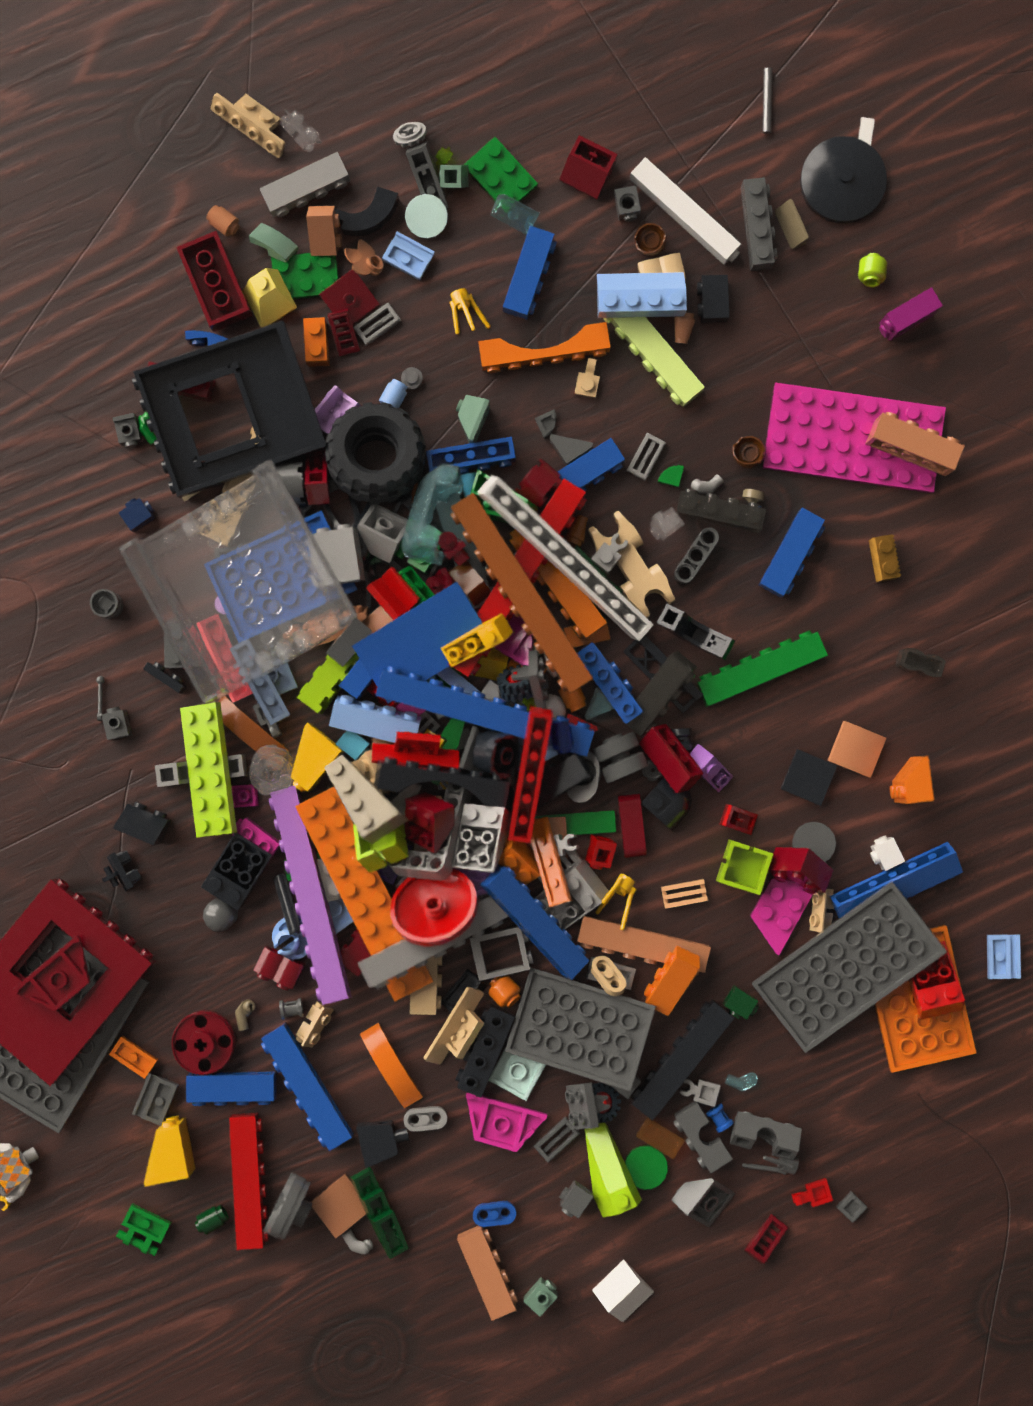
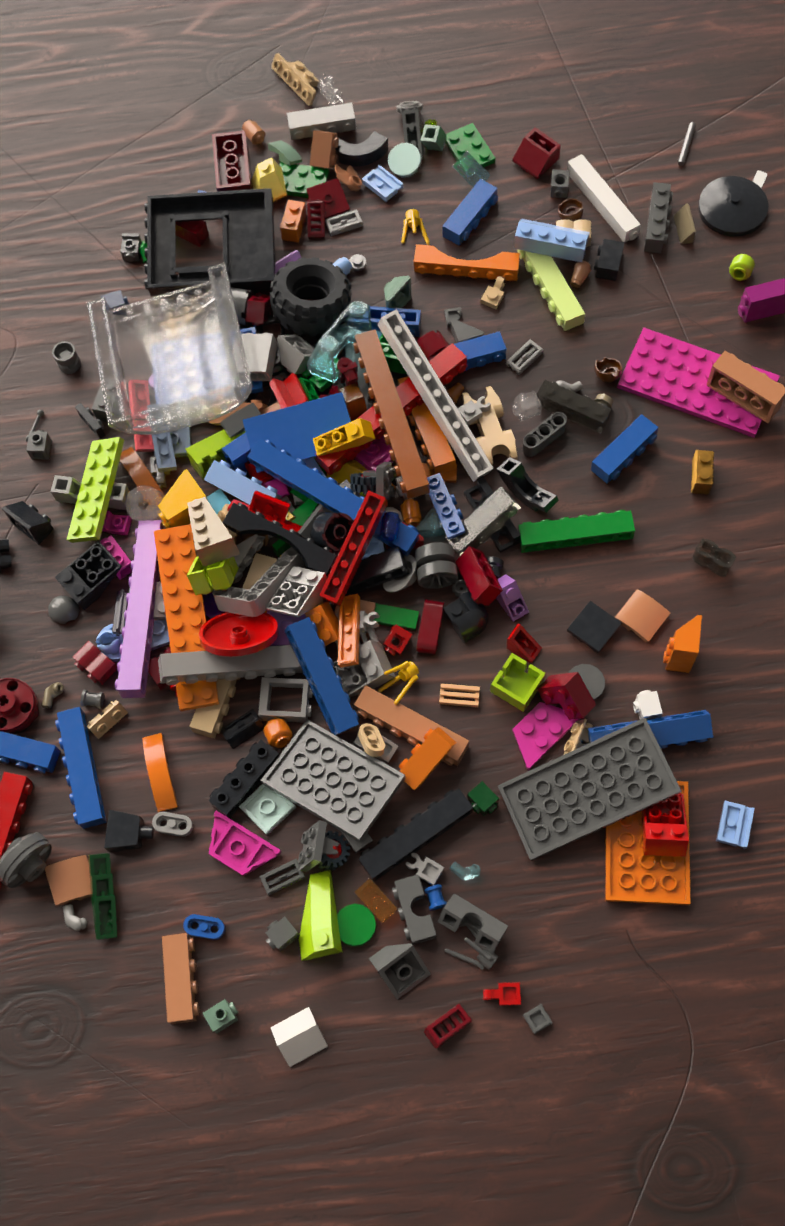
camera: 20 degrees right, 20 degrees down
(428, 820) = (257, 566): dark red slope -> none
(458, 1030) = (225, 751): tan bracket -> none
(671, 476) = (541, 374): green tile -> none

